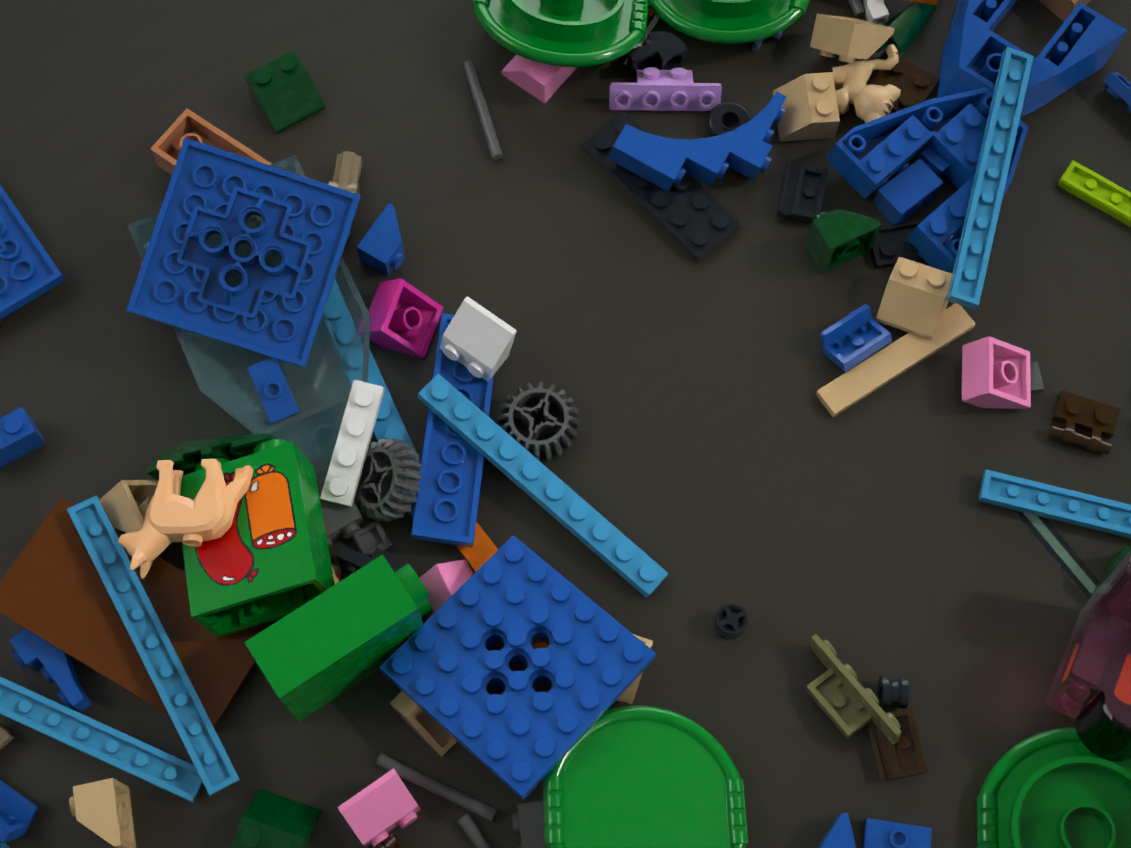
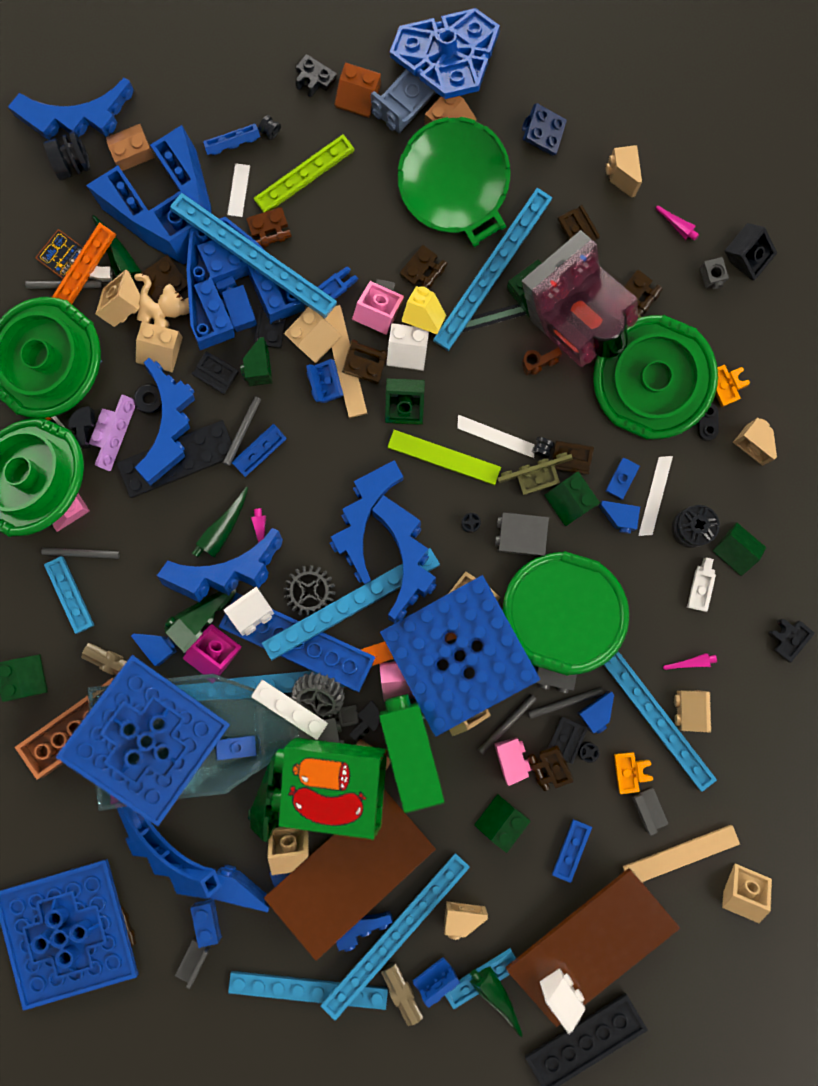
camera: 70 degrees left, 15 degrees up
(66, 382) = (186, 876): none -> blue arch
(66, 460) = (239, 890): none -> blue slope
(153, 646) = (371, 866): dark azure plate -> none
(181, 519) = (309, 832): light nougat animal -> none
(419, 113) = (69, 595): none -> dark azure plate
(434, 272) = (187, 625): none -> dark green wedge
(517, 295) = (224, 577): none -> blue arch
(576, 270) = (218, 532): none -> dark green piece
(609, 322) = (259, 524): none -> dark pink piece
(647, 545) = (415, 579): none -> blue arch
(677, 450) = (371, 489): none -> blue arch
(717, 285) = (259, 450): none -> blue plate
(735, 253) = (242, 430): none -> dark grey bar
(743, 705) = (522, 534): none -> dark grey brick
(814, 550) = (444, 457): none -> lime tile
(830, 766) = (571, 499): none -> dark green slope
(874, 460) = (404, 401): none -> dark green slope
(879, 616) = (495, 436): none -> white sticker
(898, 386) = (362, 367): none -> dark brown plate
(958, 437) = (407, 347): none -> white slope
(998, 307) = (334, 286): none -> blue hinge
(1022, 437) = (424, 310): none -> light yellow slope
(1035, 654) = (550, 358): none -> reddish brown plate
(1046, 190) = (268, 222): none -> reddish brown plate
(1074, 140) = (238, 190): none -> white sticker

